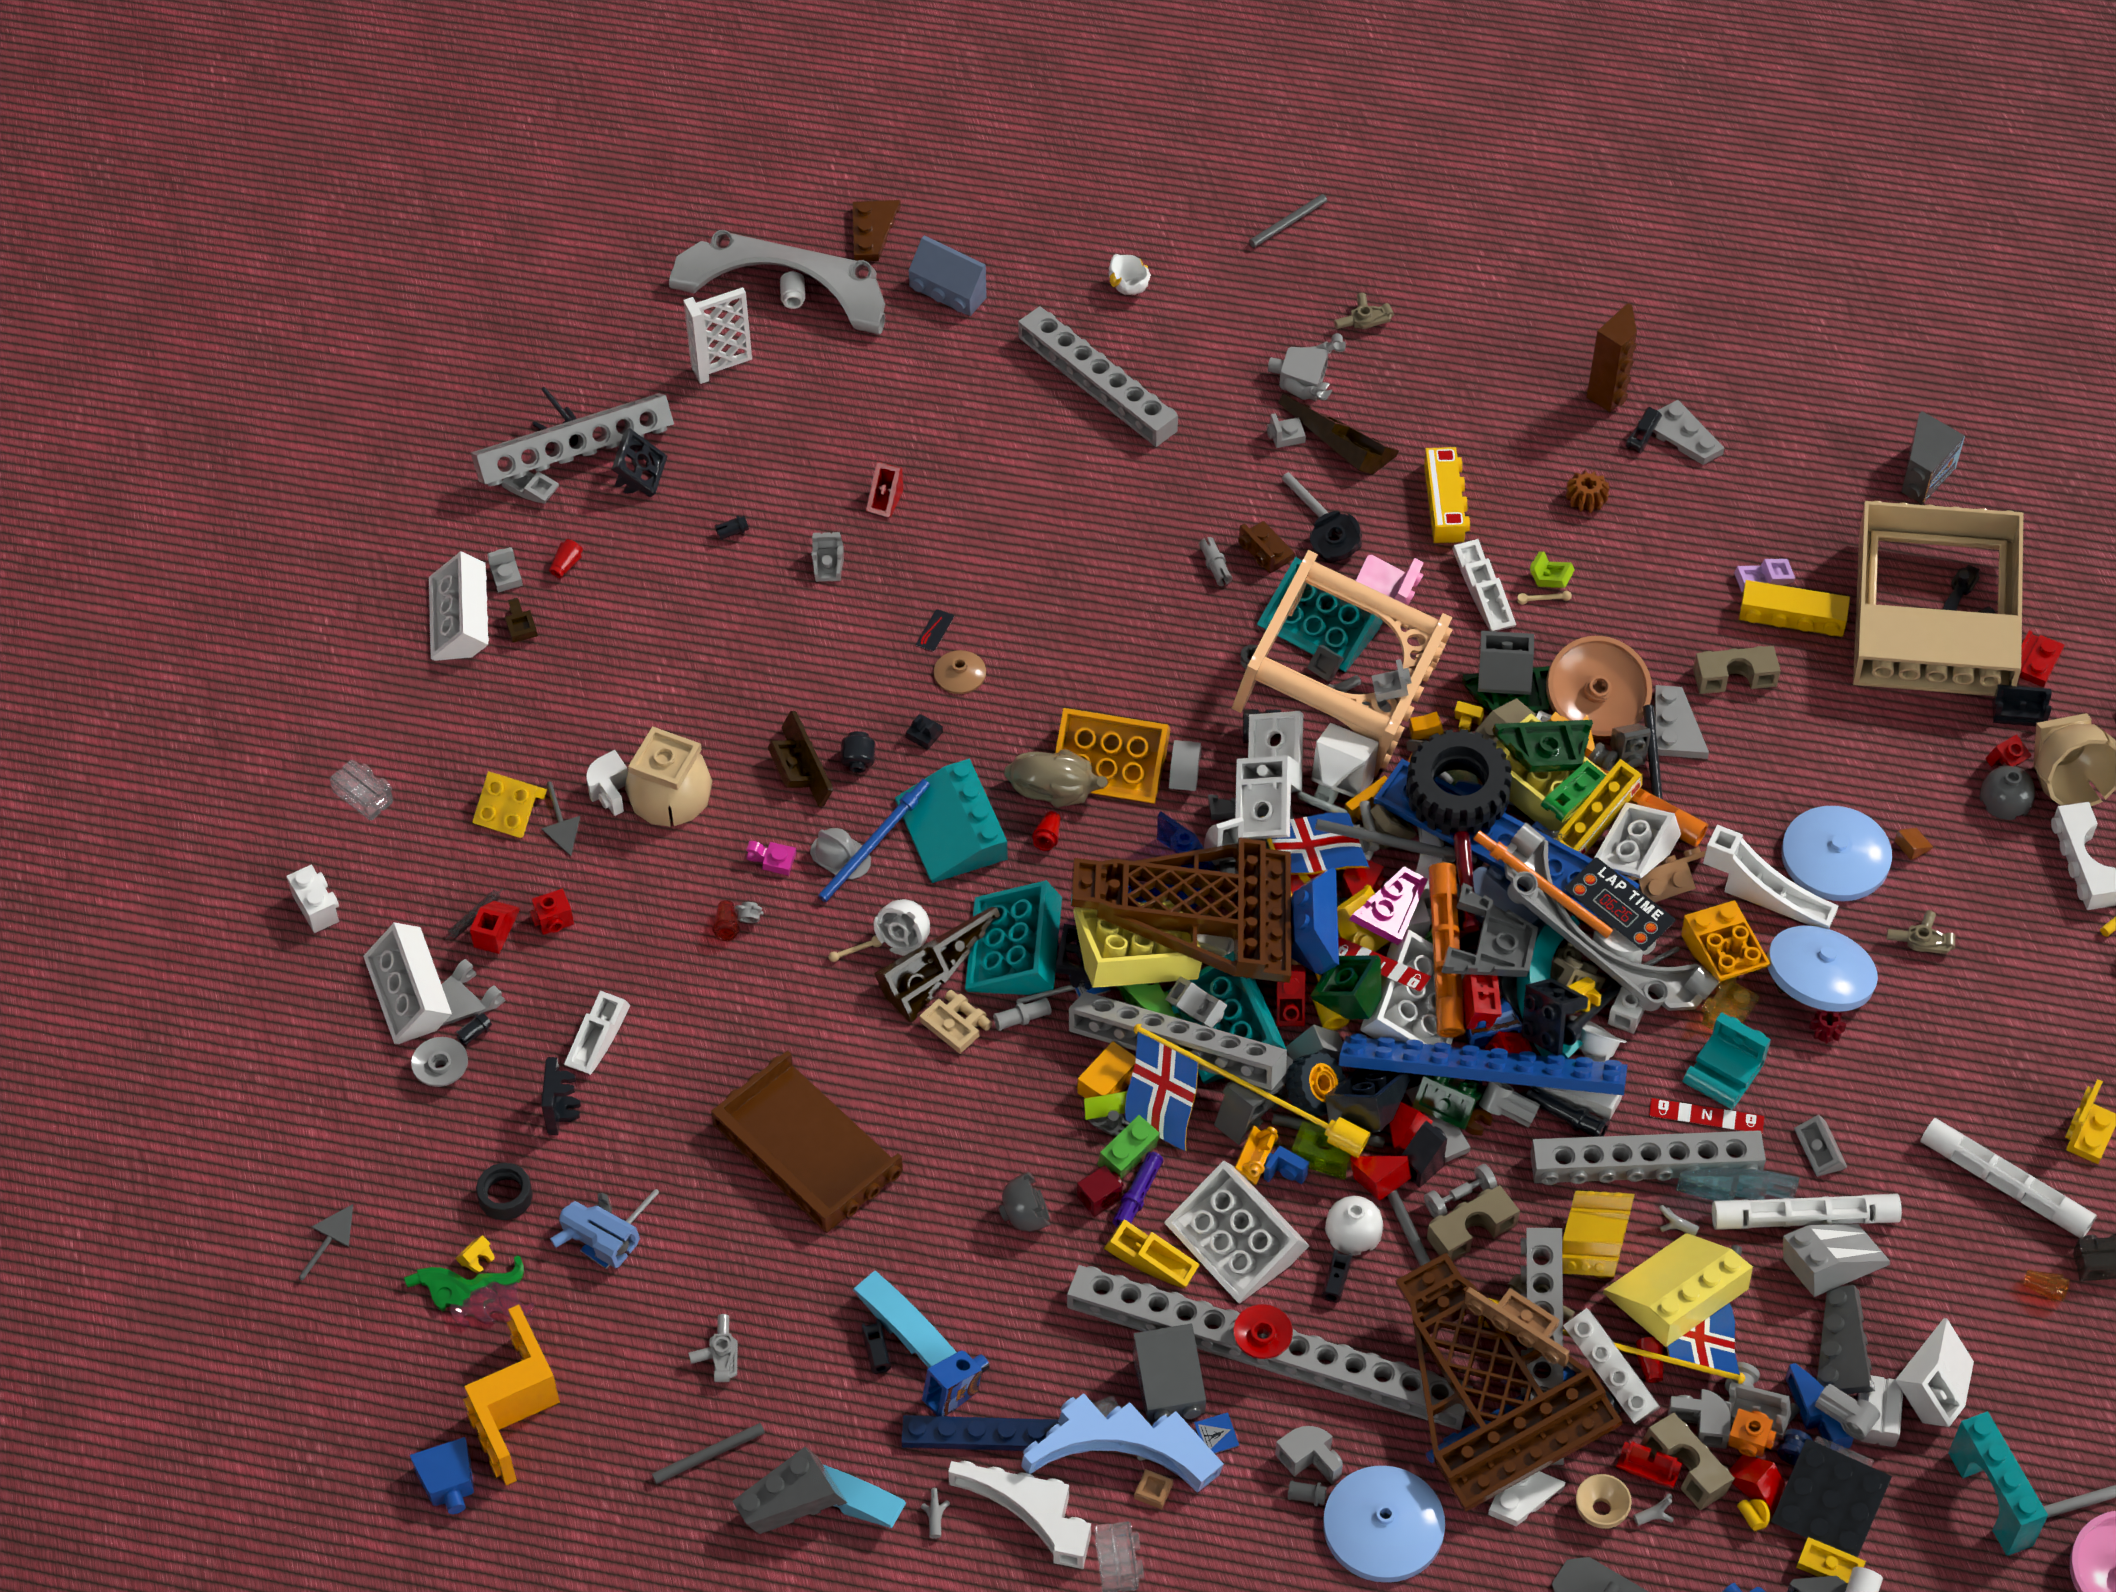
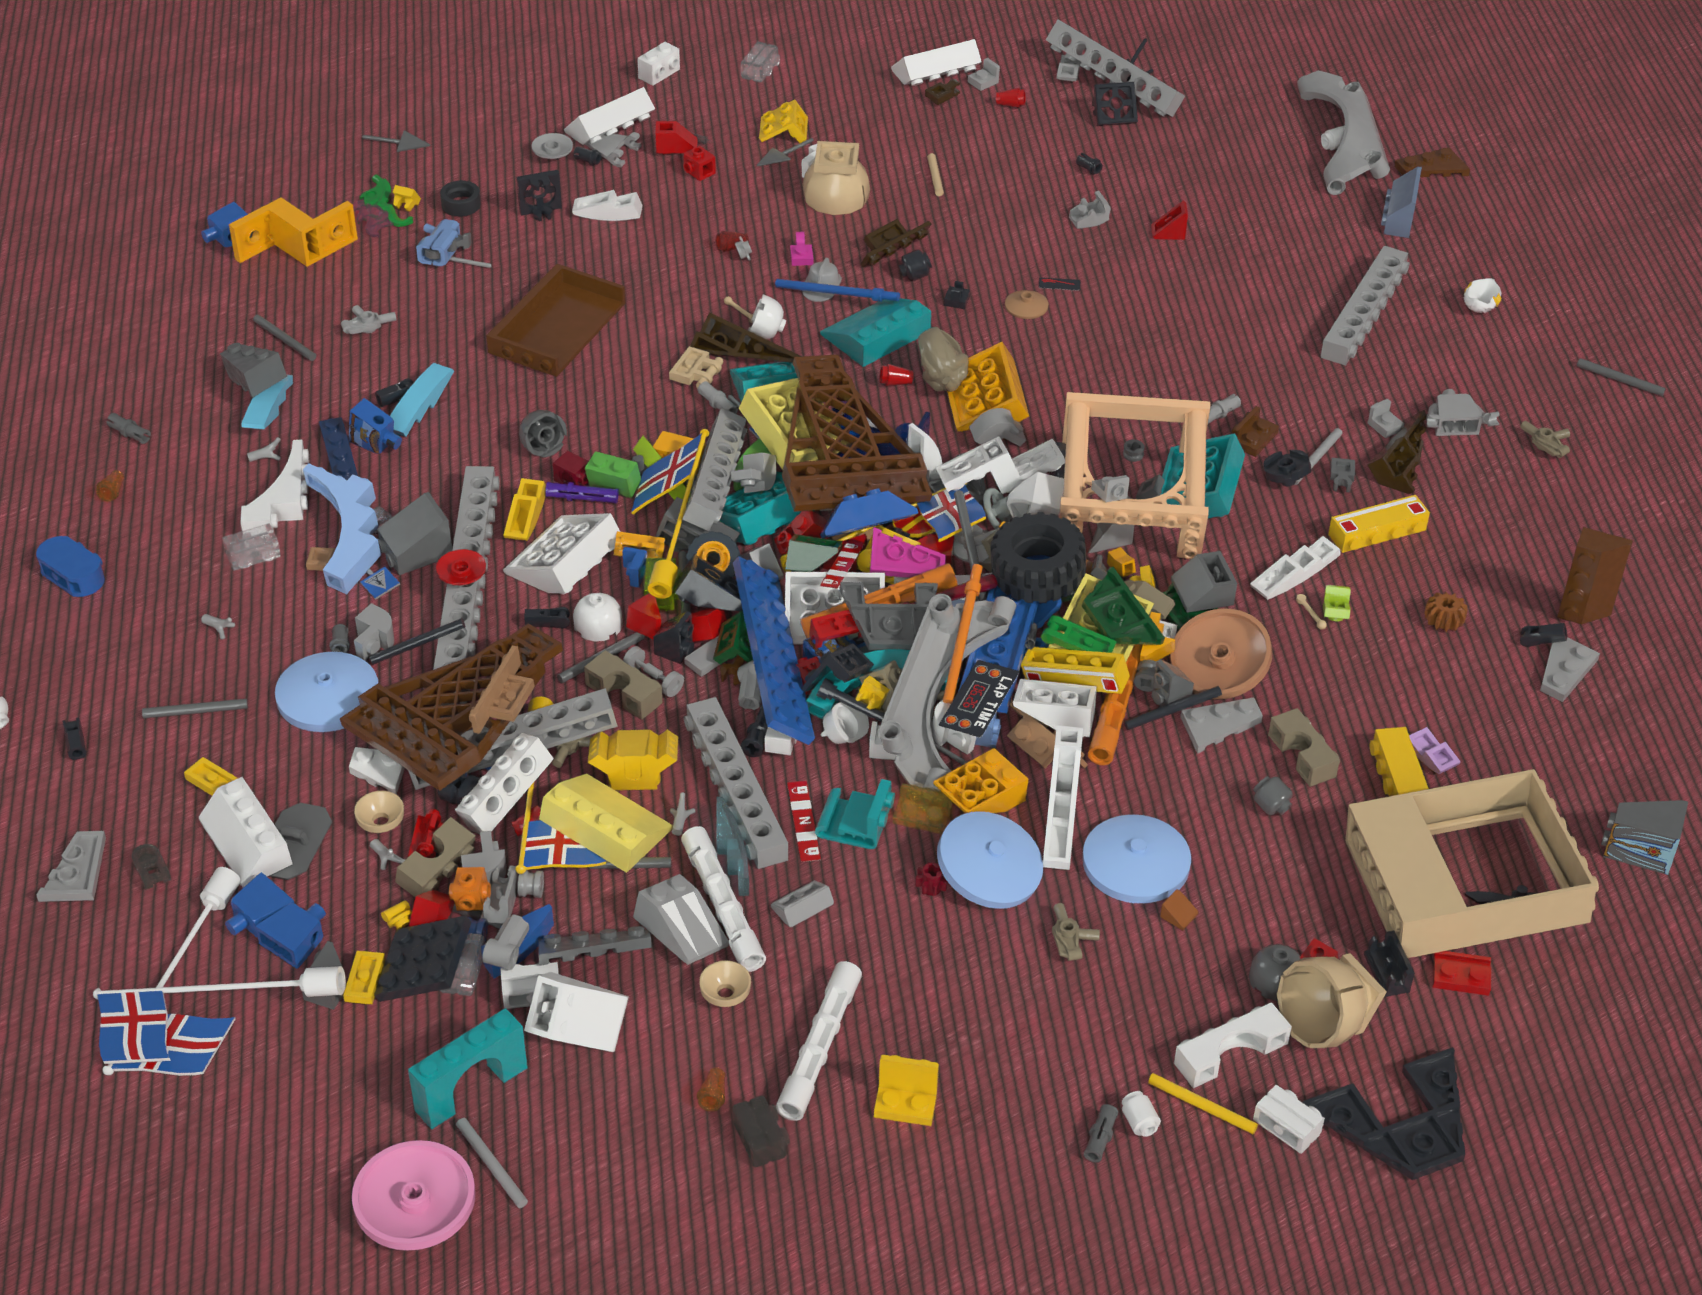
camera: 70 degrees right, 10 degrees down
(679, 681) = (935, 174): none -> tan bar
(700, 338) = (1234, 90): white fence -> none
(1352, 1407) = (417, 641): none -> black bar
(1355, 494) = (1342, 473): none -> dark grey plate
(1389, 579) = (1256, 505): bright pink bracket -> none
(1794, 716) = (1273, 795): none -> dark grey head
(1925, 1227) = (725, 975): none -> tan piece

